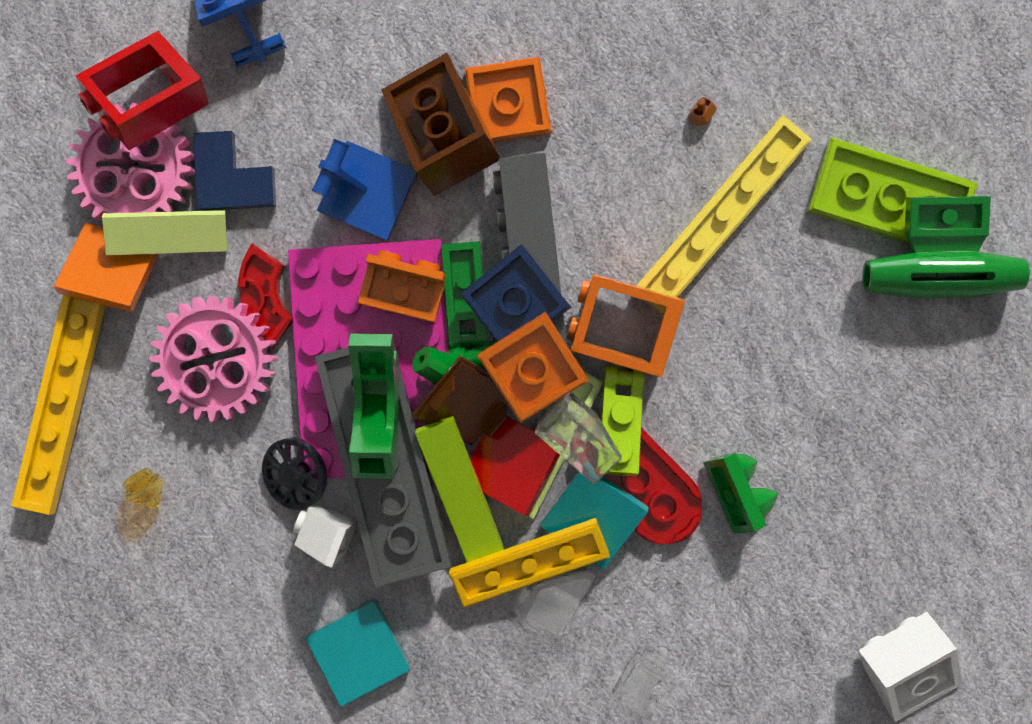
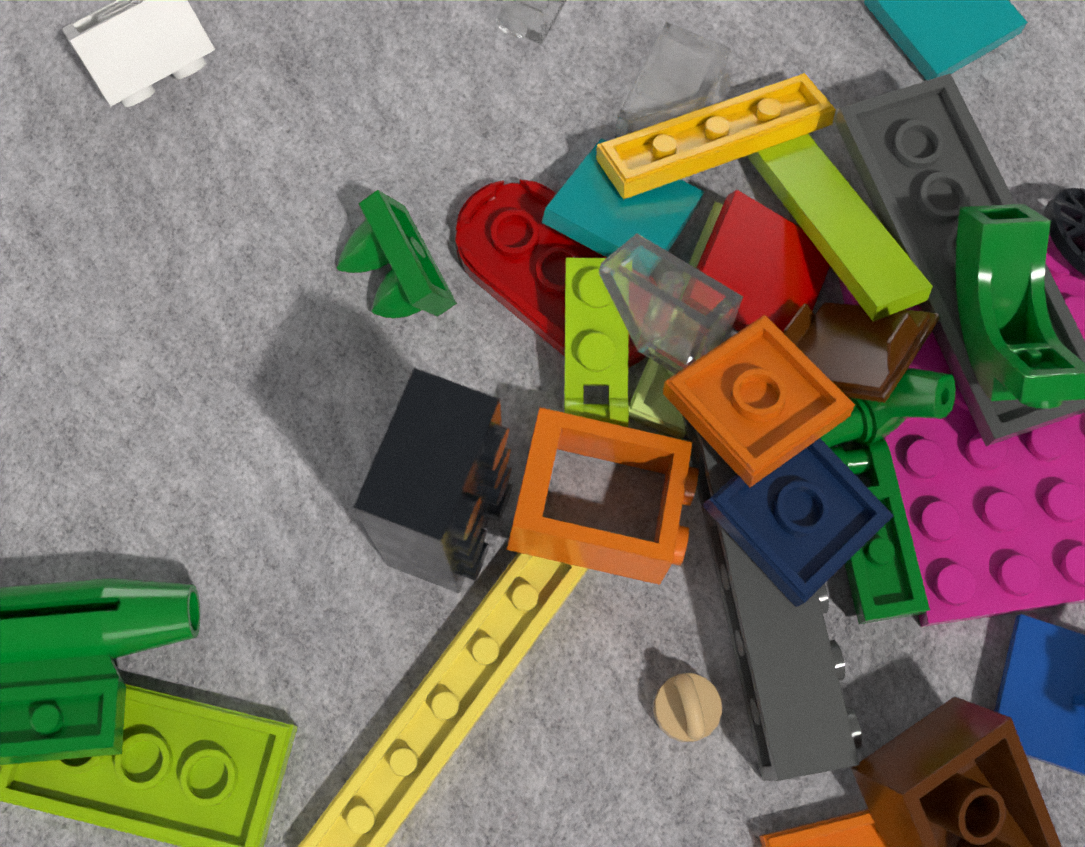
camera: 170 degrees right, 15 degrees down
(324, 534) = (1036, 145): white slope -> none
(402, 287) = (989, 521): orange bracket -> none
(585, 203) = (687, 707): none -> tan tile
(732, 316) = (437, 481): none -> black piece

